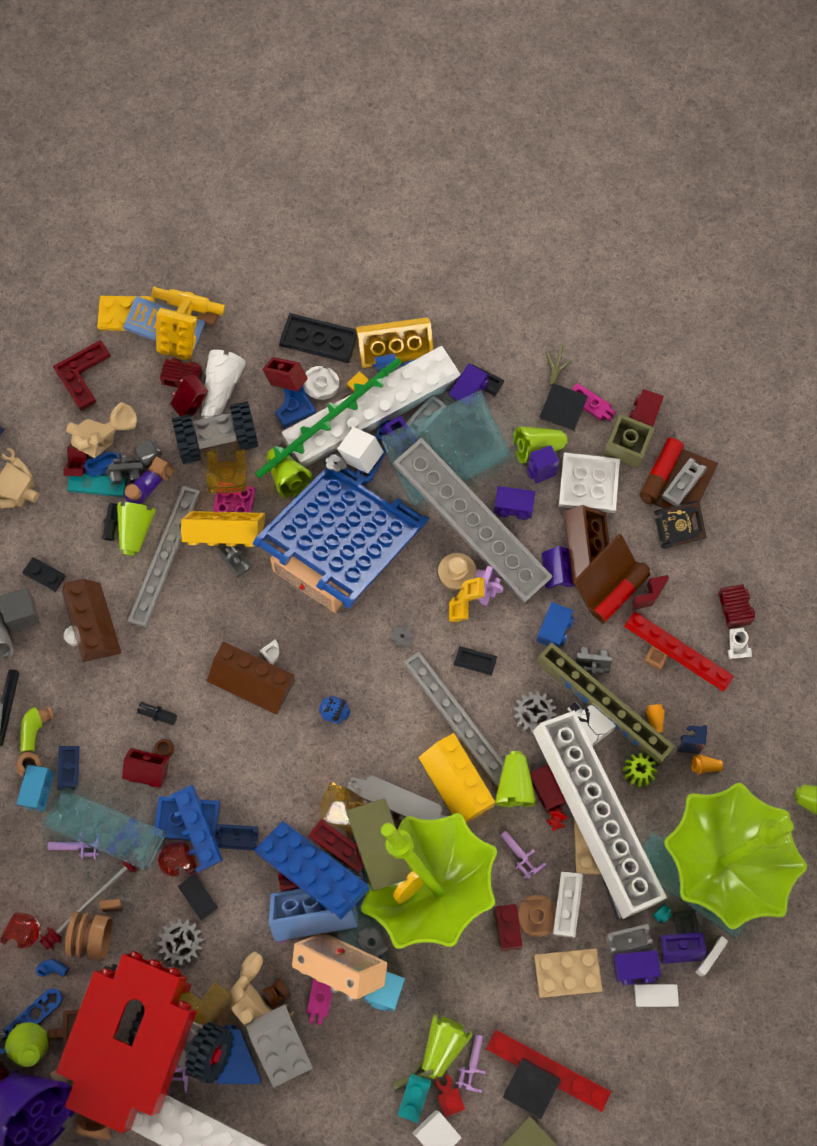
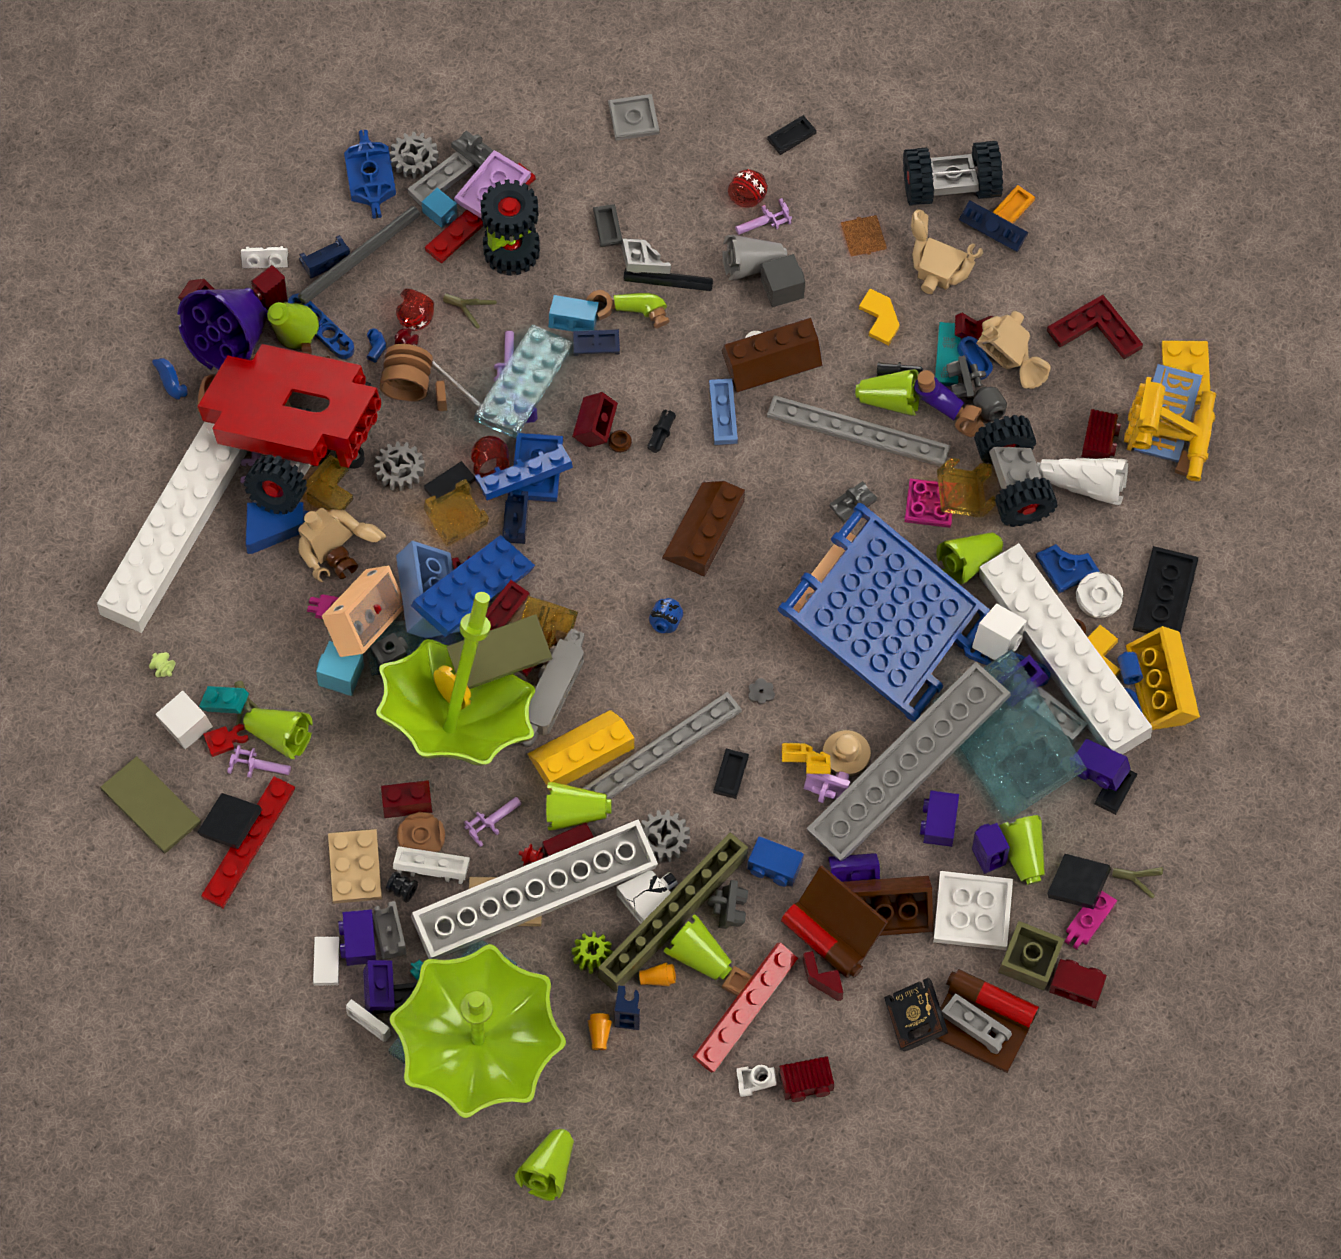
camera: 90 degrees right, 5 degrees down
(14, 882) = (459, 302): none -> olive plant
(44, 574) = (831, 306): black plate -> none
(49, 534) = (882, 308): none -> yellow tile
(140, 662) = (723, 411): none -> medium blue plate
(188, 396) = (1065, 441): dark red brick -> none
(221, 527) = (891, 481): yellow slope -> none
(232, 889) = (455, 514): none -> clear yellow panel
(271, 652) = (738, 548): white tile -> none
(278, 1046) = (282, 558): light grey brick -> none
(285, 373) = (1102, 547): dark red brick -> none
(324, 423) = (1046, 597): green plant -> none
(335, 463) = (977, 604): flat silver plant -> none
(587, 930) = (401, 886): none -> black bush
(635, 685) = (699, 950): none -> lime cone

